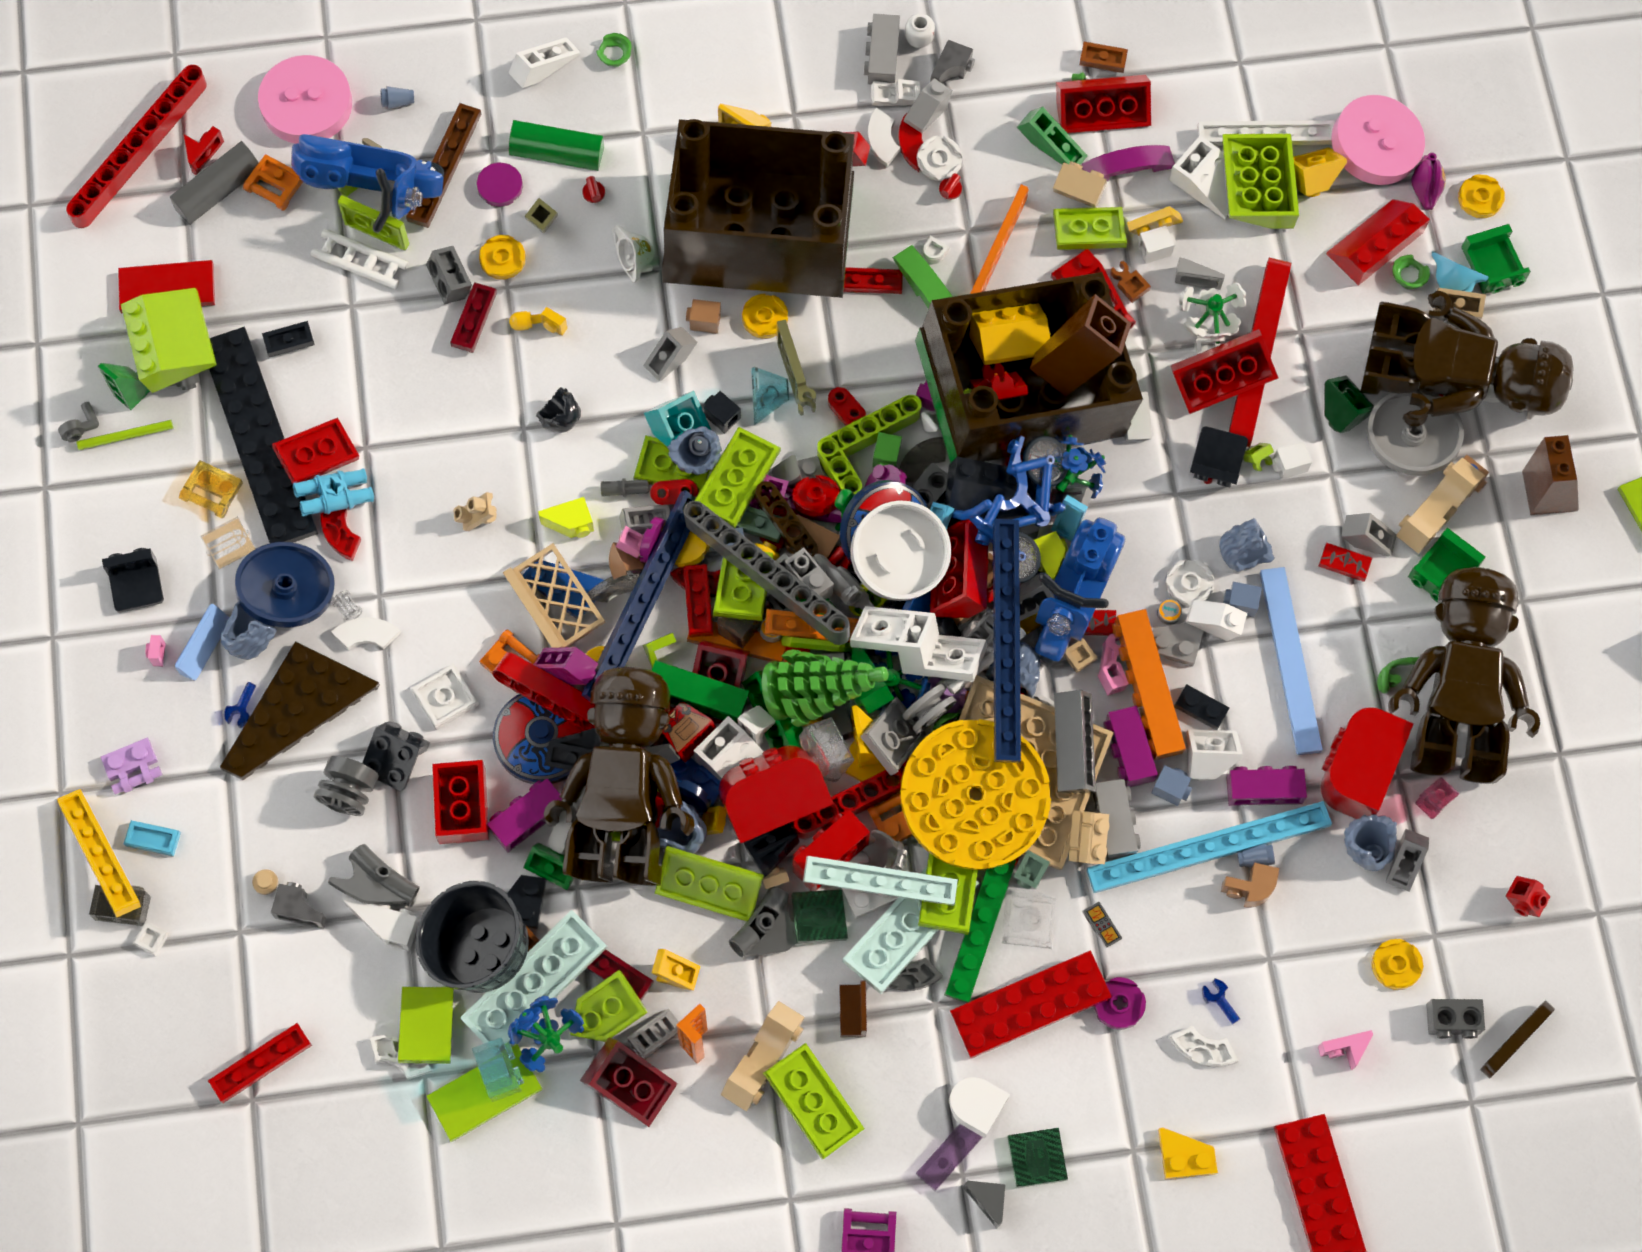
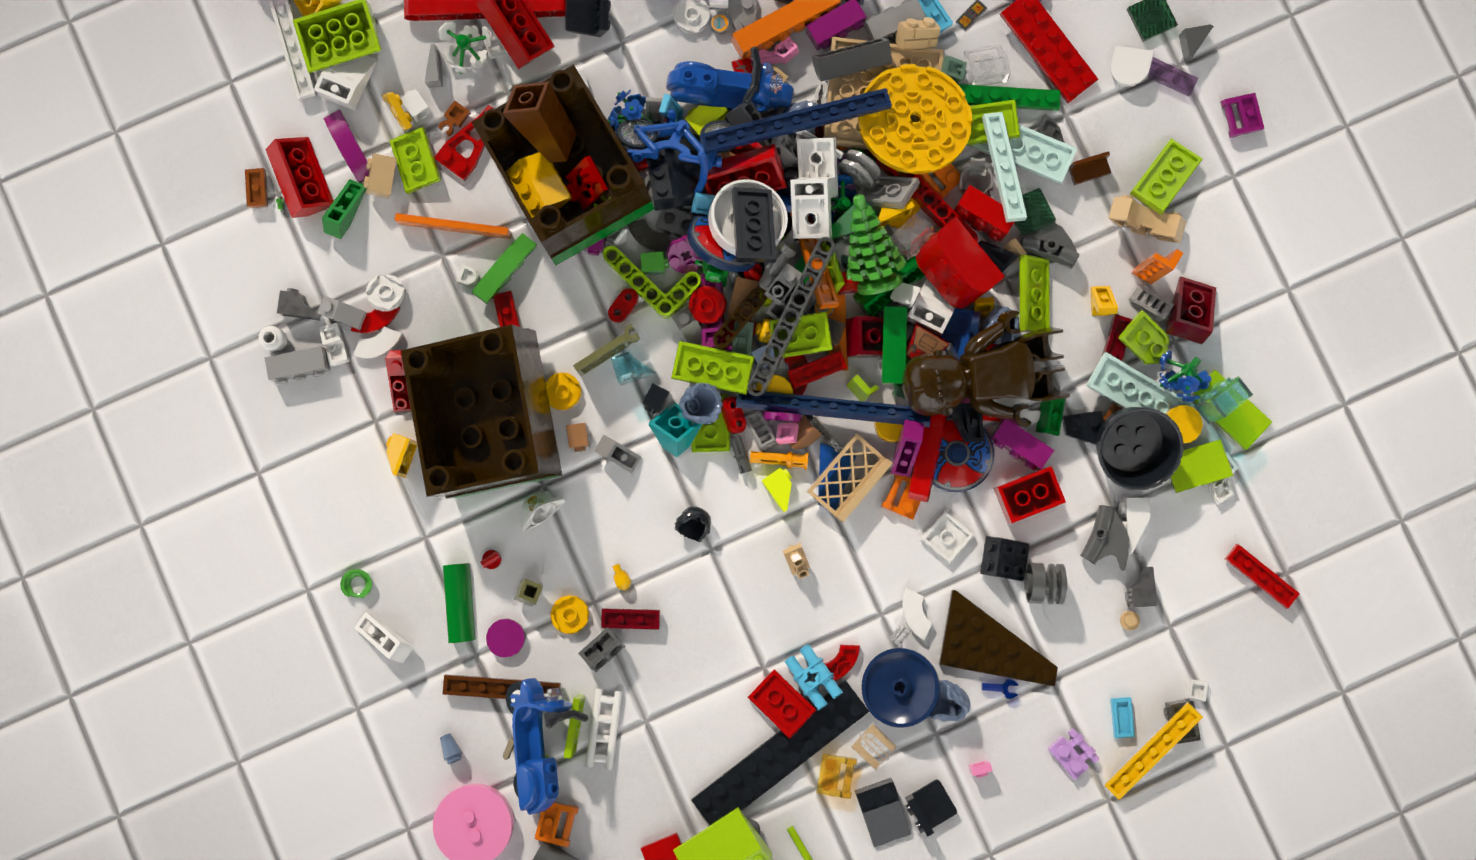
camera: 100 degrees left, 15 degrees up
(150, 524) = (882, 812): none -> black slope
(202, 643) = (962, 735): light blue slope -> none
(288, 339) = (691, 760): black plate -> none
(484, 1017) = (1188, 421): none -> yellow tile
(553, 321) = (617, 553): yellow plate -> none
(600, 539) = (789, 459): none -> light orange pin
(887, 547) = (753, 225): none -> black plate
(951, 187) = (408, 277): red plate -> none

